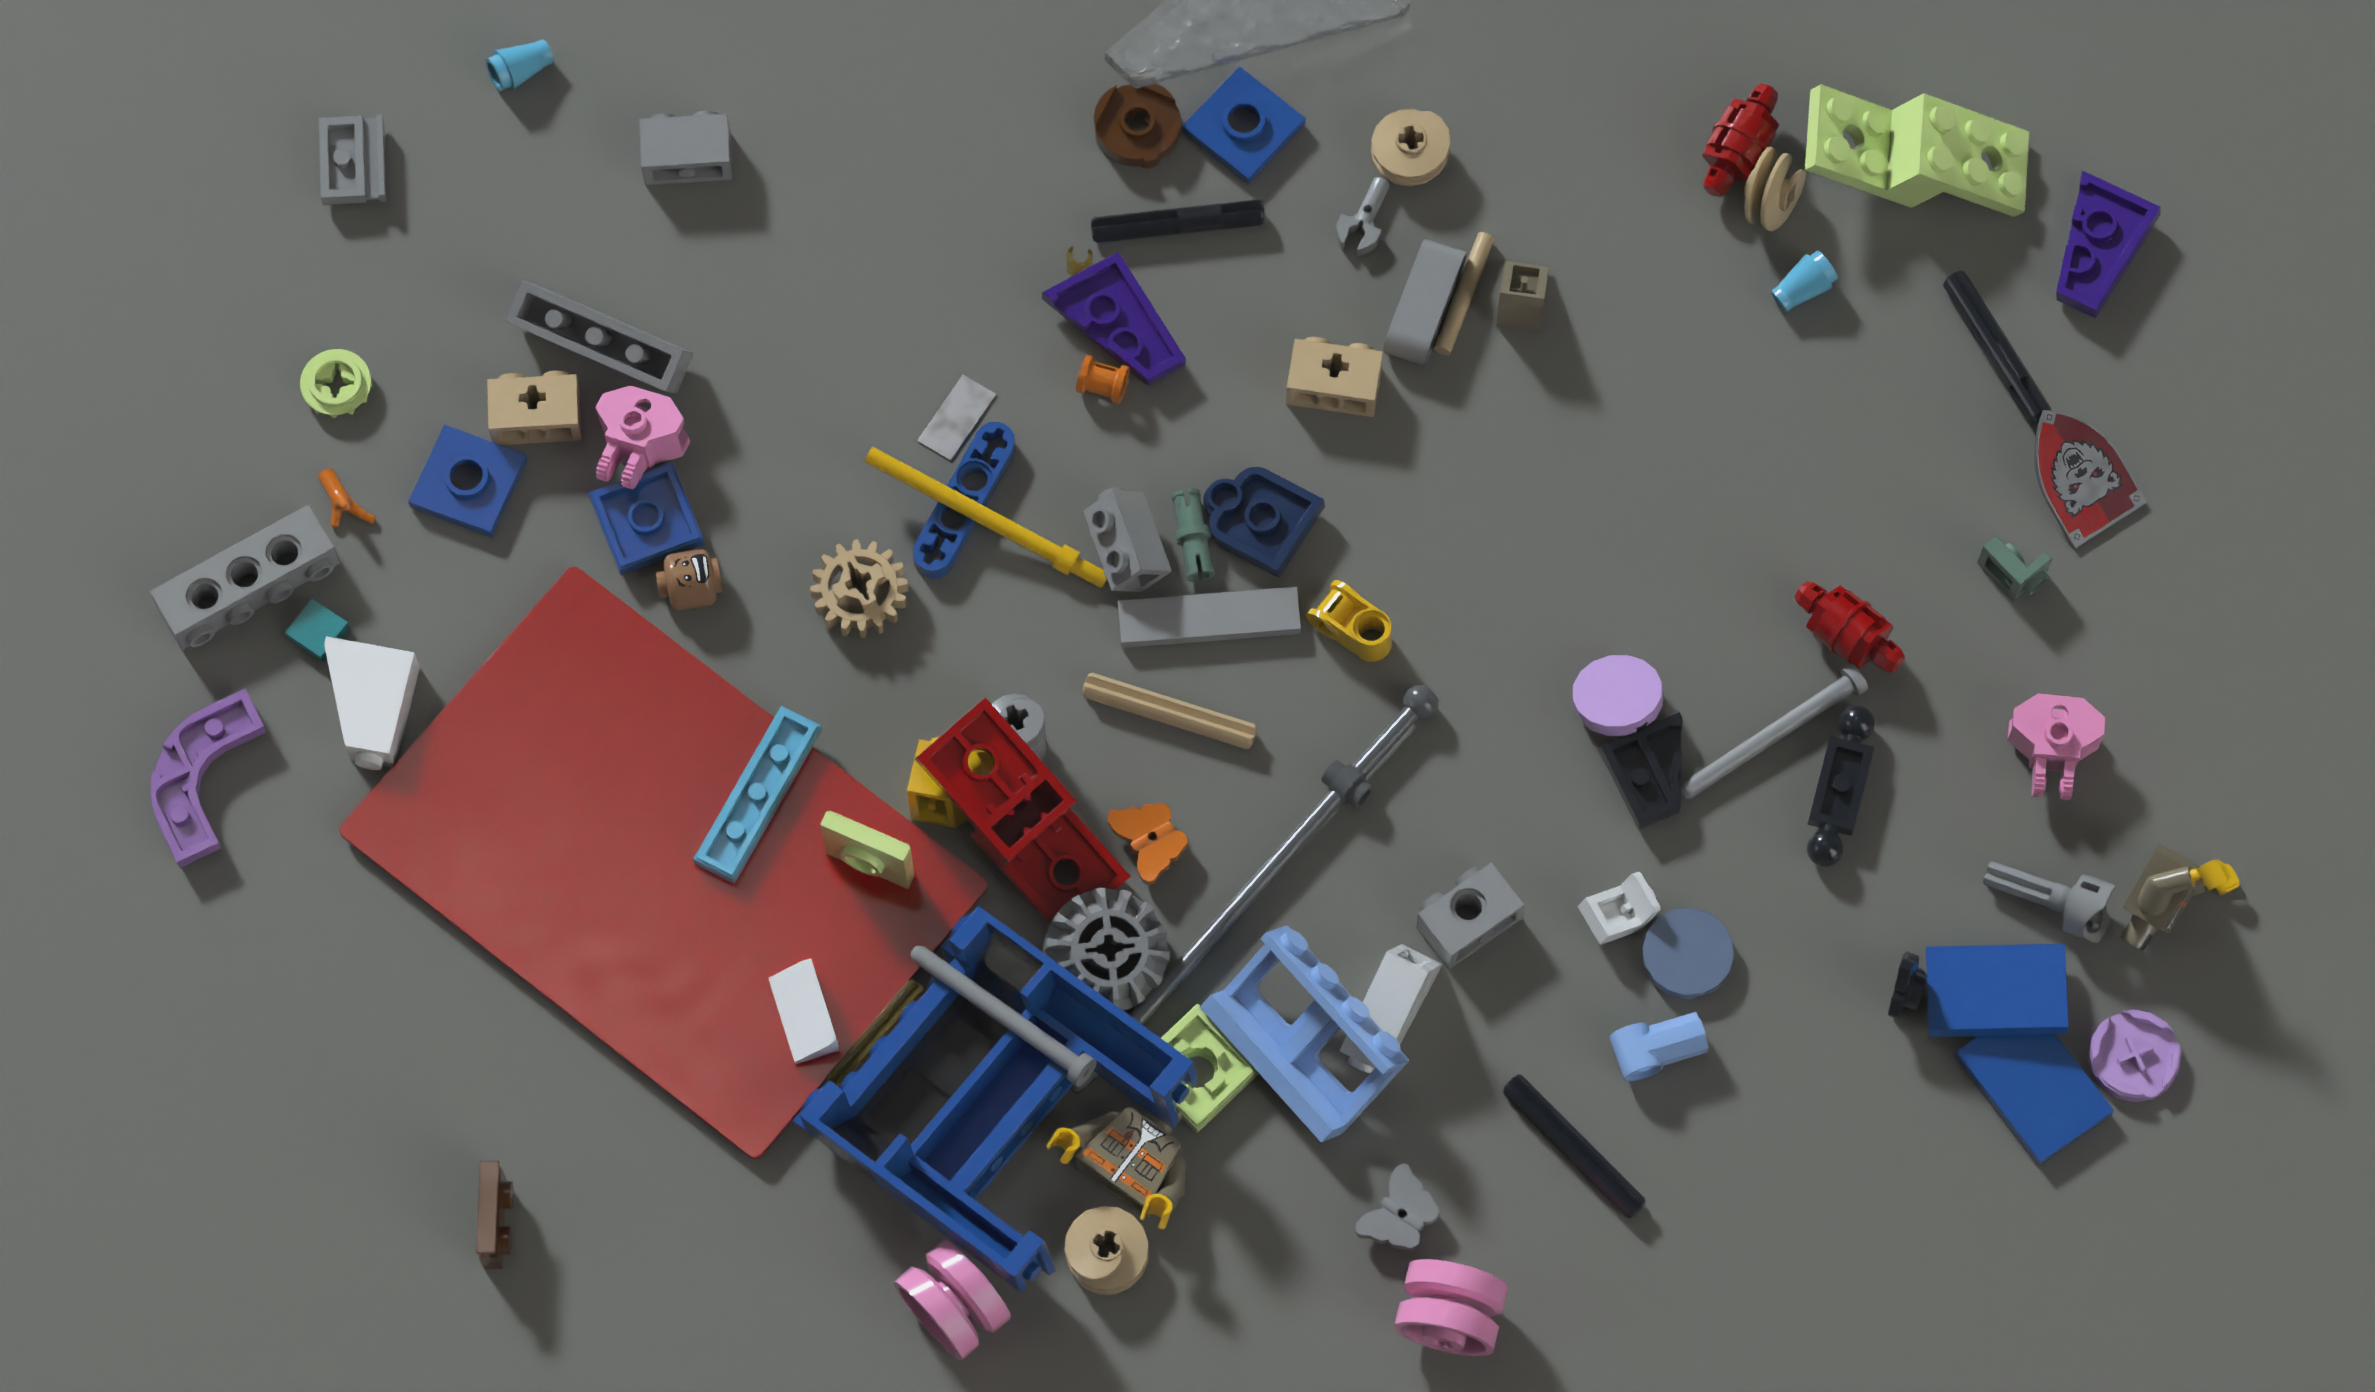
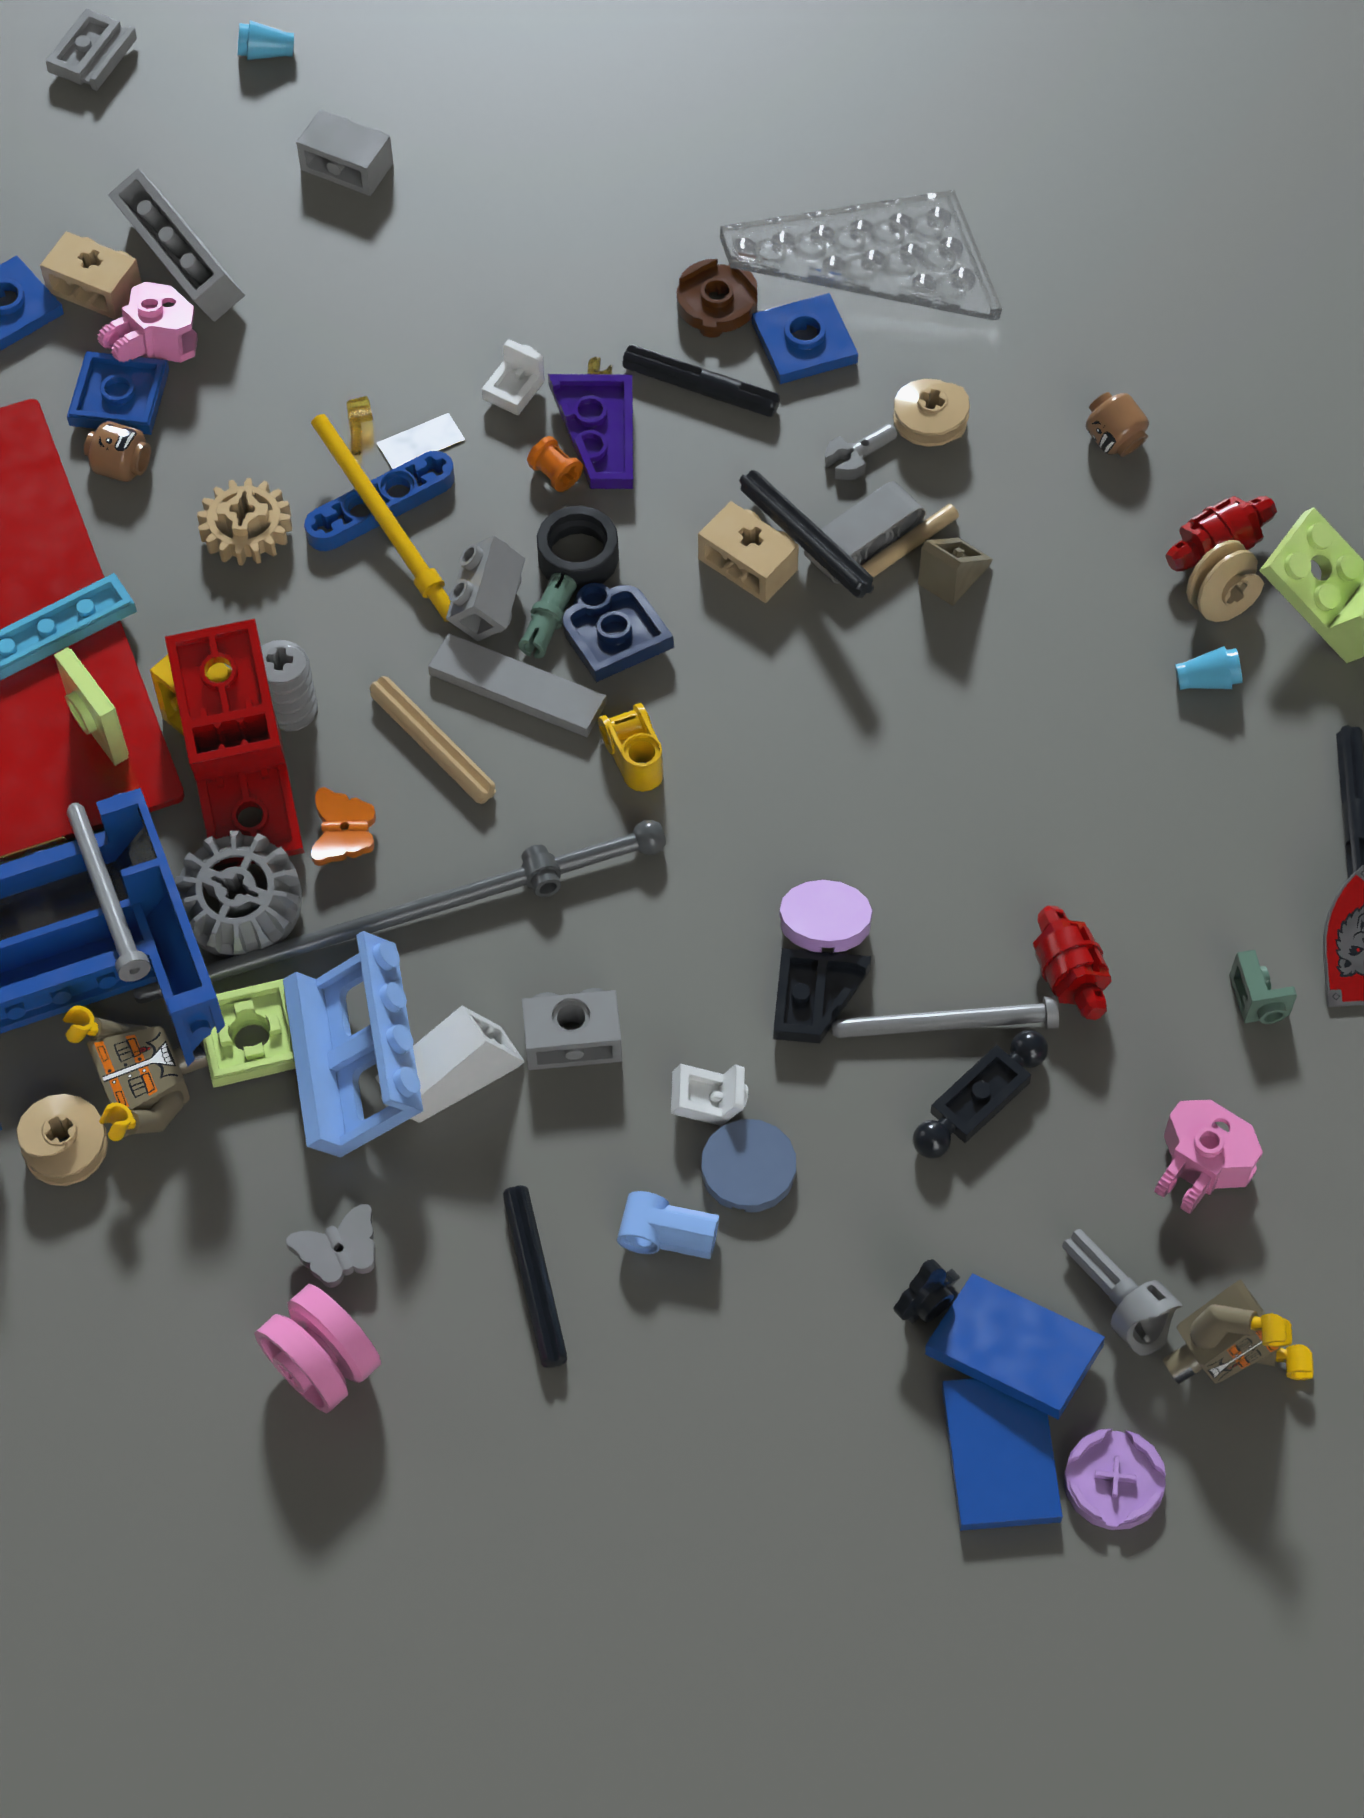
camera: 30 degrees right, 10 degrees down
(882, 421) = (358, 412): none -> clear yellow hand
(1010, 310) = (515, 378): none -> white bracket
(1177, 421) = (578, 521): none -> black tyre
(1383, 337) = (807, 534): none -> black axle
(1583, 72) = (1117, 423): none -> medium nougat head

